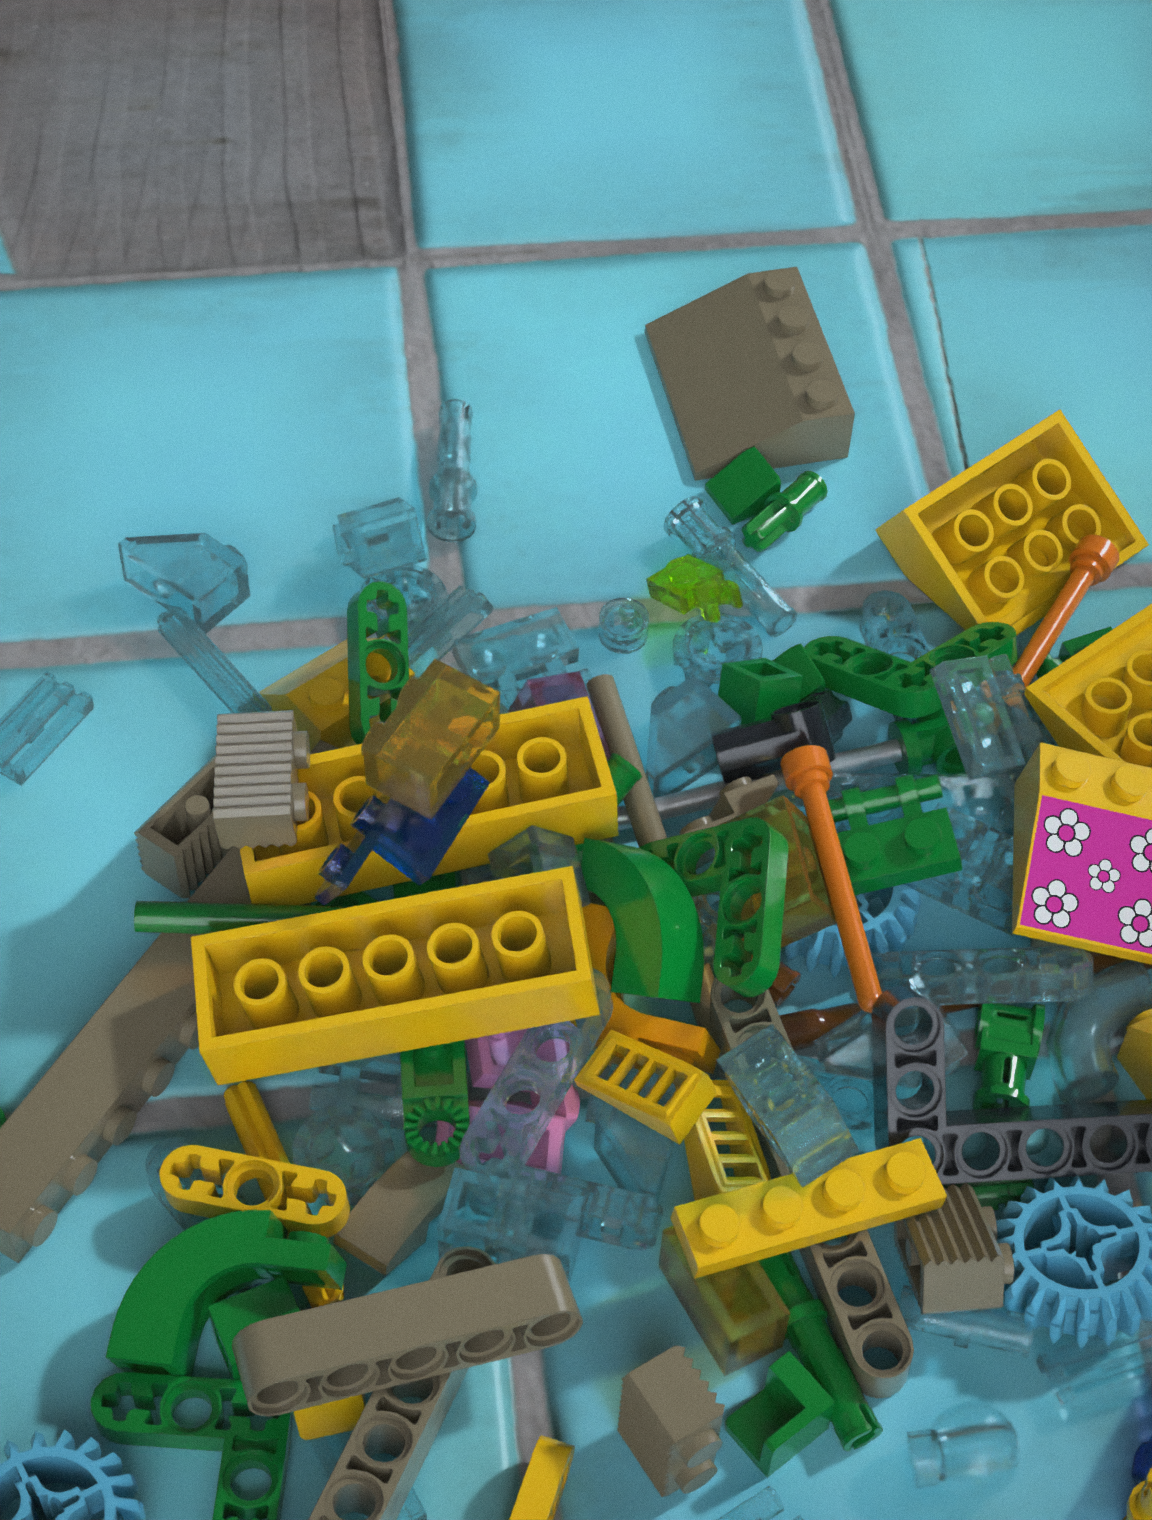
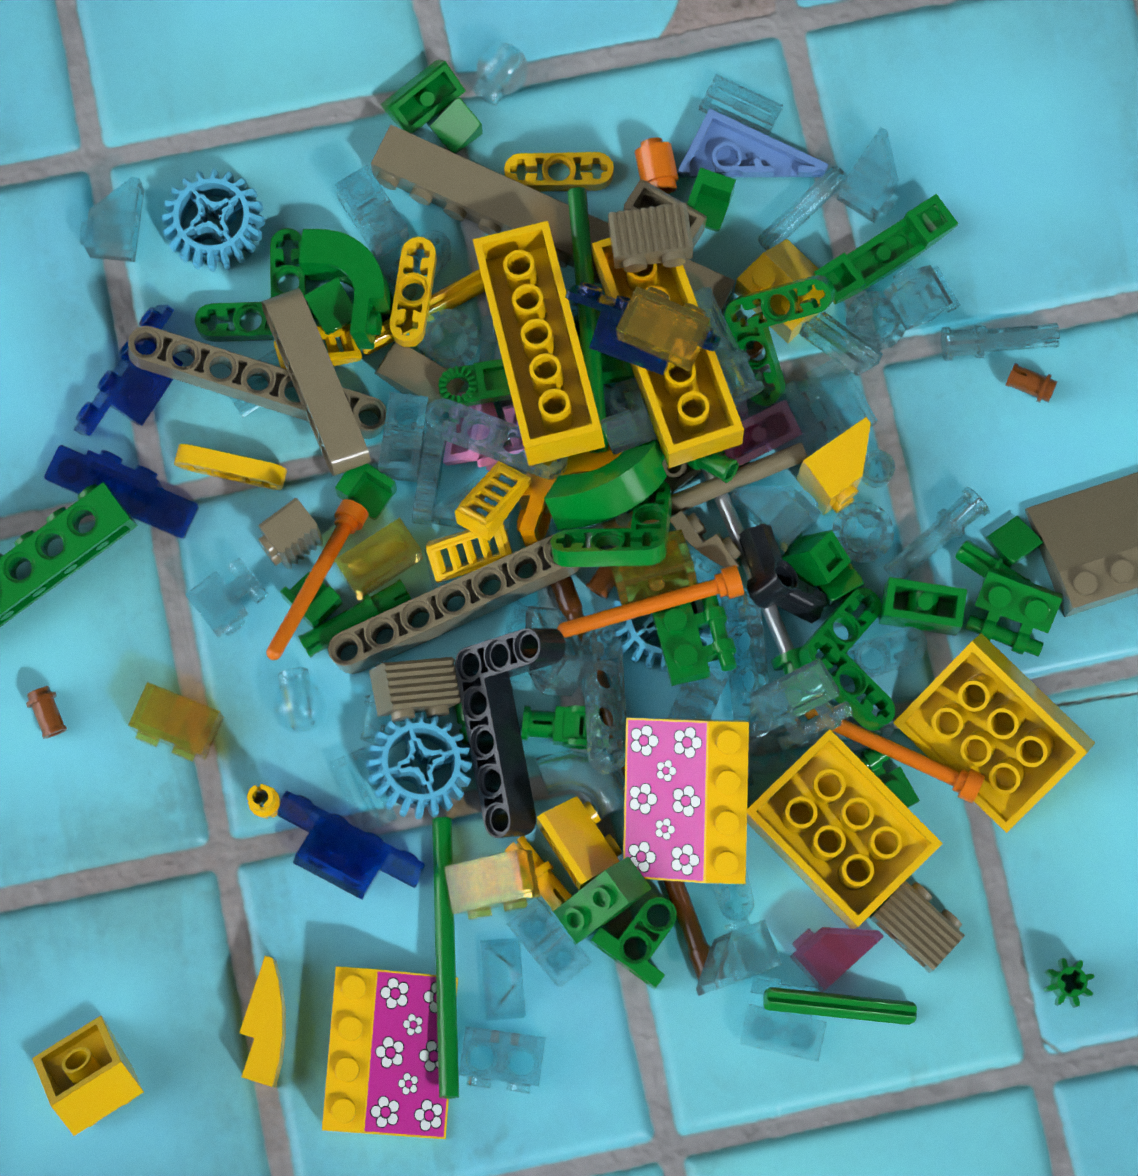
camera: 85 degrees right, 25 degrees up
(72, 952) = (569, 159): none -> yellow beam
(89, 1250) = (372, 212): none -> clear light blue brick
(103, 835) = (657, 164): none -> orange brick
(105, 735) = (744, 152): none -> medium blue wing
(160, 767) = (712, 197): none -> green panel
(293, 567) = (889, 249): none -> green slope
(528, 433) = (1031, 383): none -> dark orange pin
(603, 1311) = (368, 488): none -> green panel
(631, 636) = (836, 469): none -> yellow slope
(639, 1338) = (348, 518): none -> orange piece
(692, 584) = (911, 511): clear neon green plate -> none
(784, 1217) = (419, 598): yellow plate -> none
(788, 1105) = (465, 573): clear light blue brick -> none
(833, 482) = (1016, 600): none -> green plate
(838, 578) = (923, 606): none -> green brick

